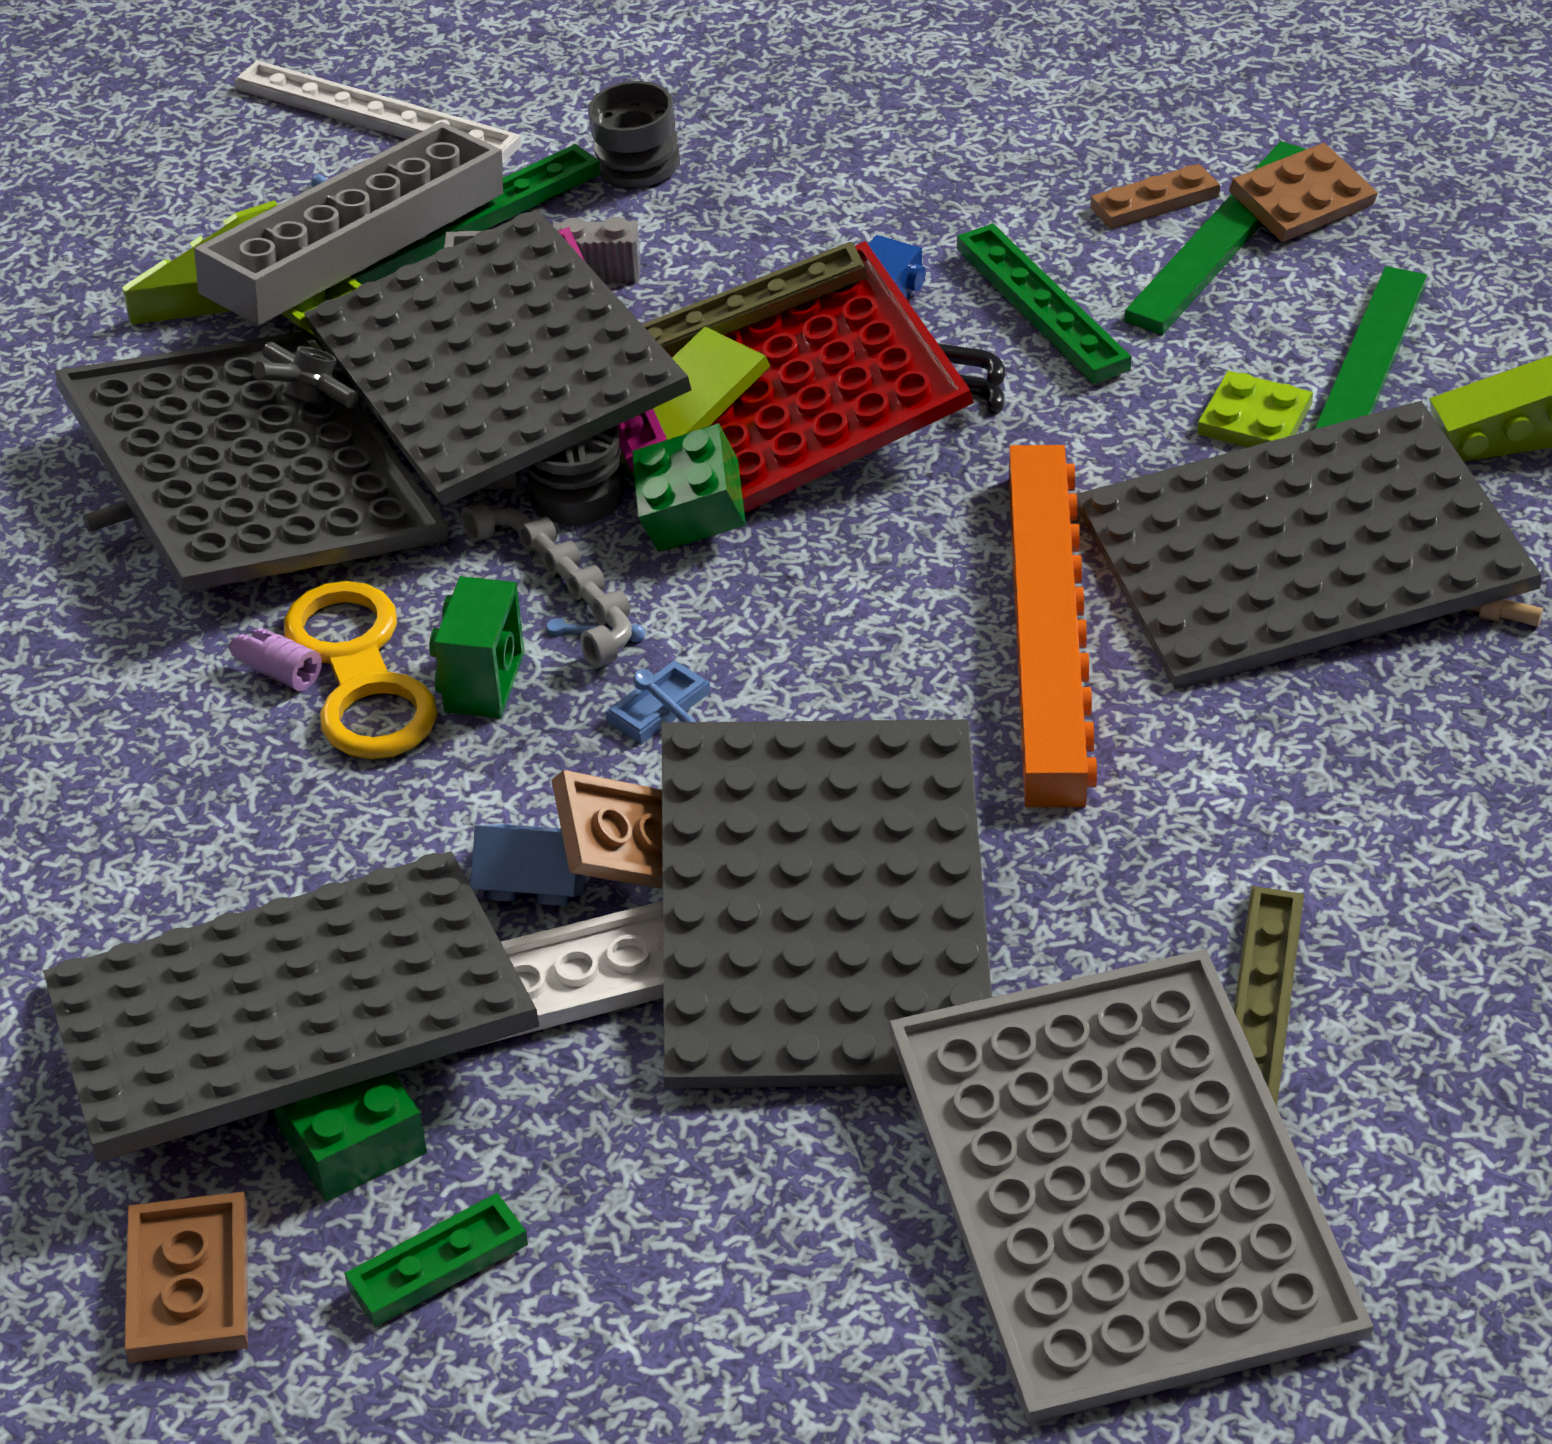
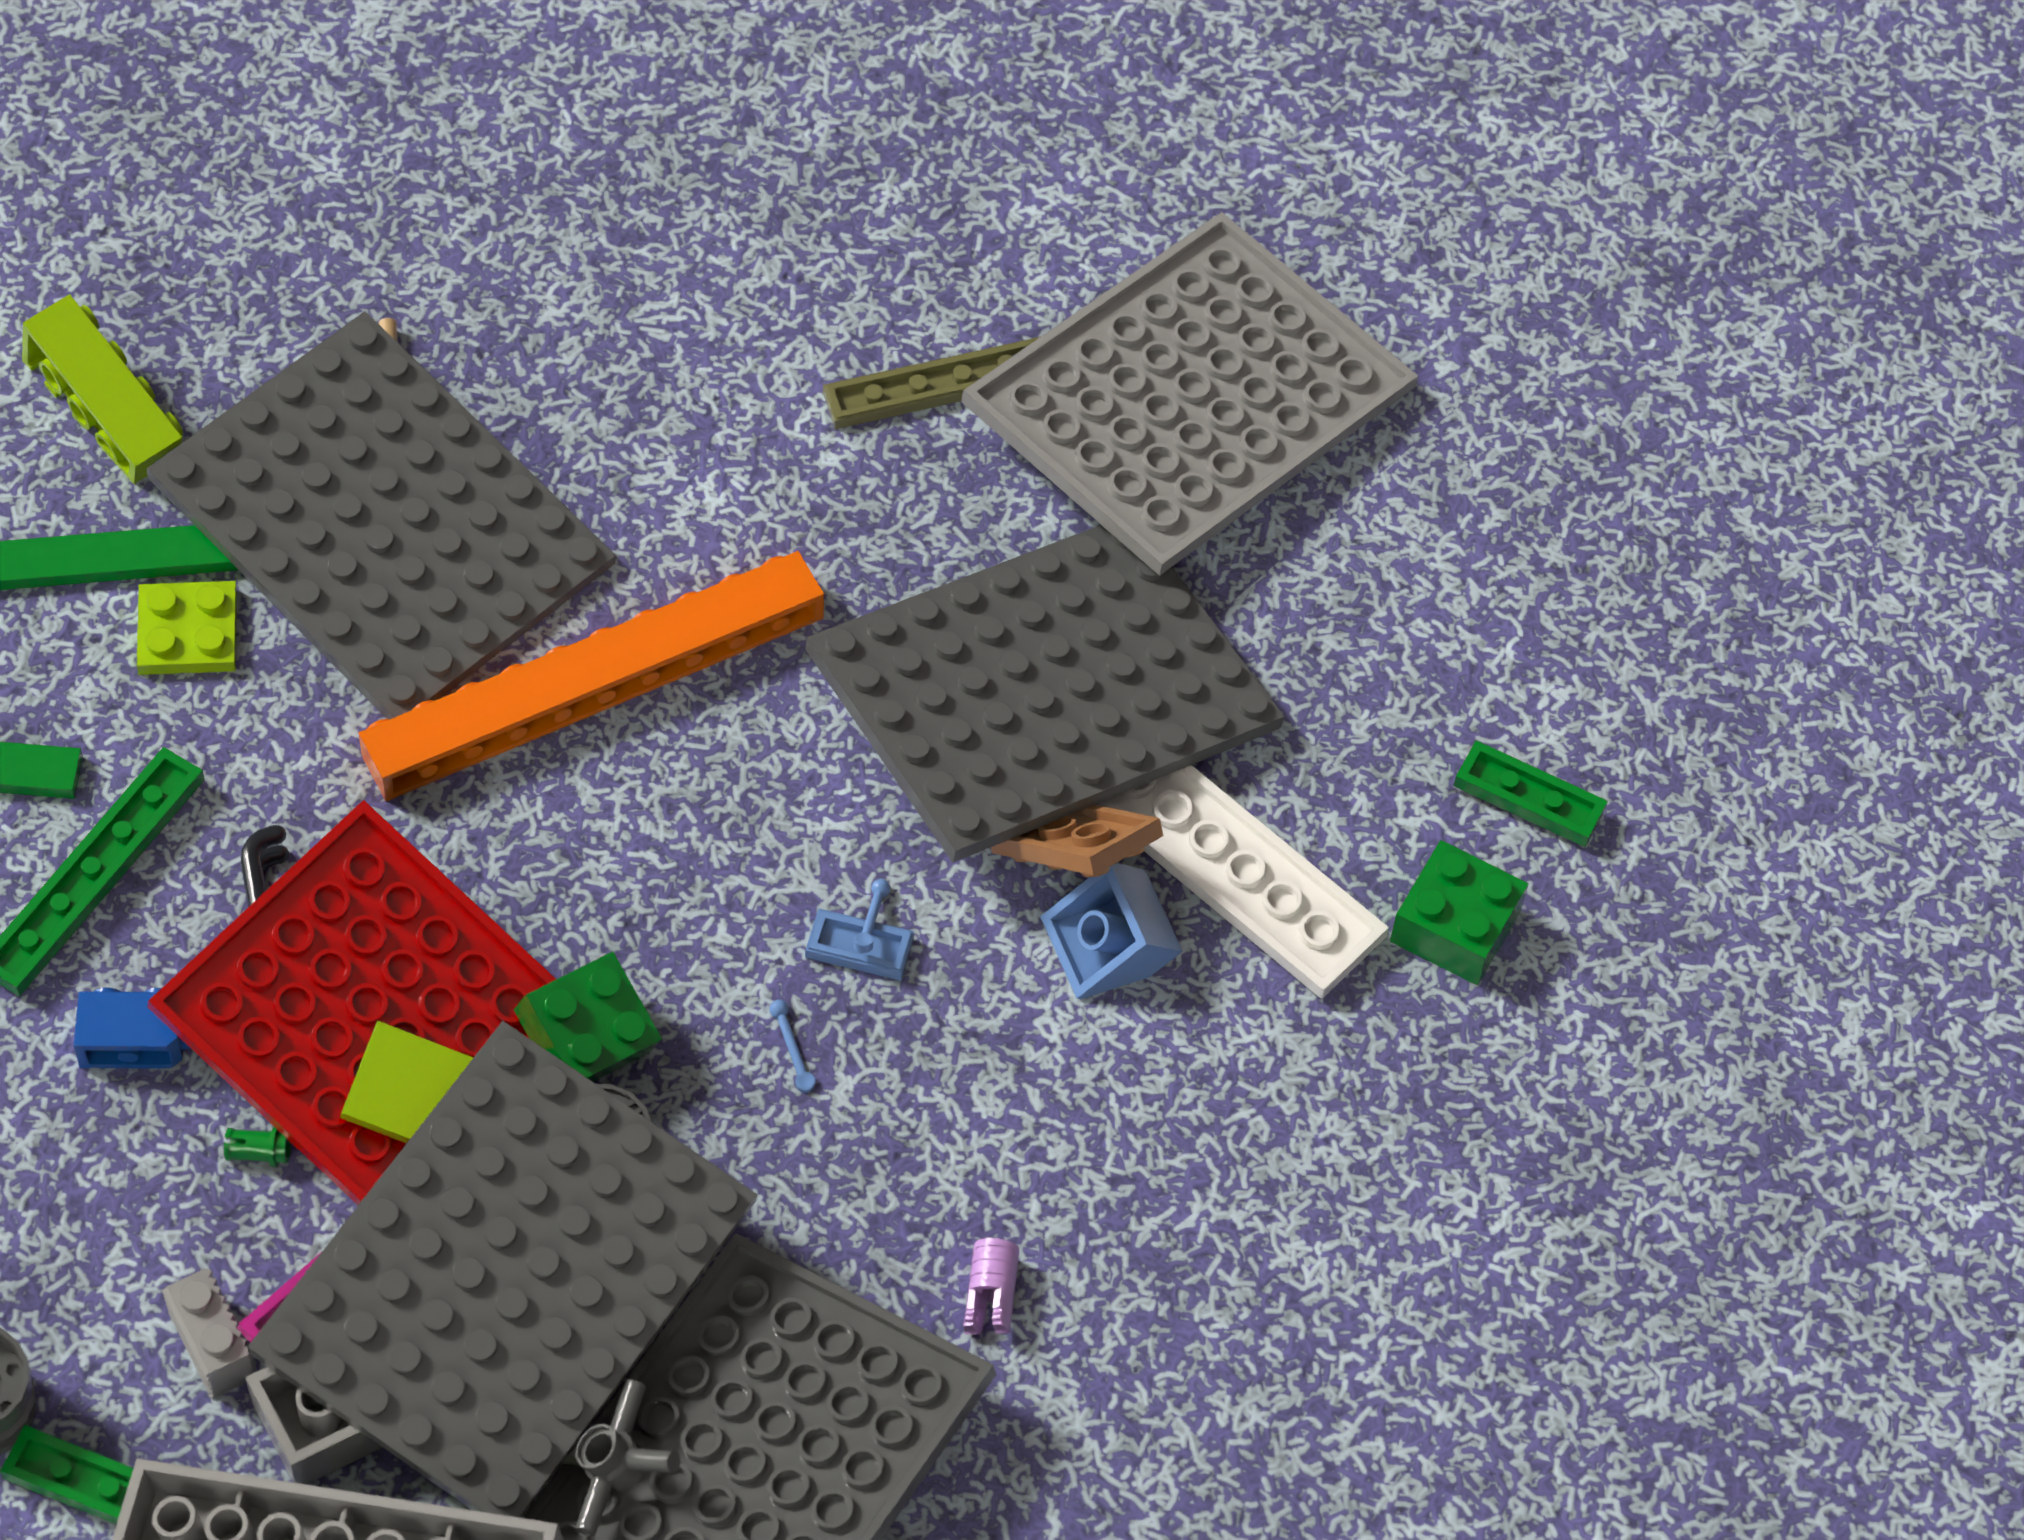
camera: 125 degrees left, 15 degrees up
(186, 1277) = (1653, 949): medium nougat plate -> none
(283, 1003) = (1391, 1011): dark grey plate -> none
(361, 671) = (961, 1212): yellow bar -> none
(478, 647) = (908, 1086): green brick -> none
(564, 559) = (745, 1076): light grey bar -> none
(760, 297) = (279, 1087): olive tile -> none

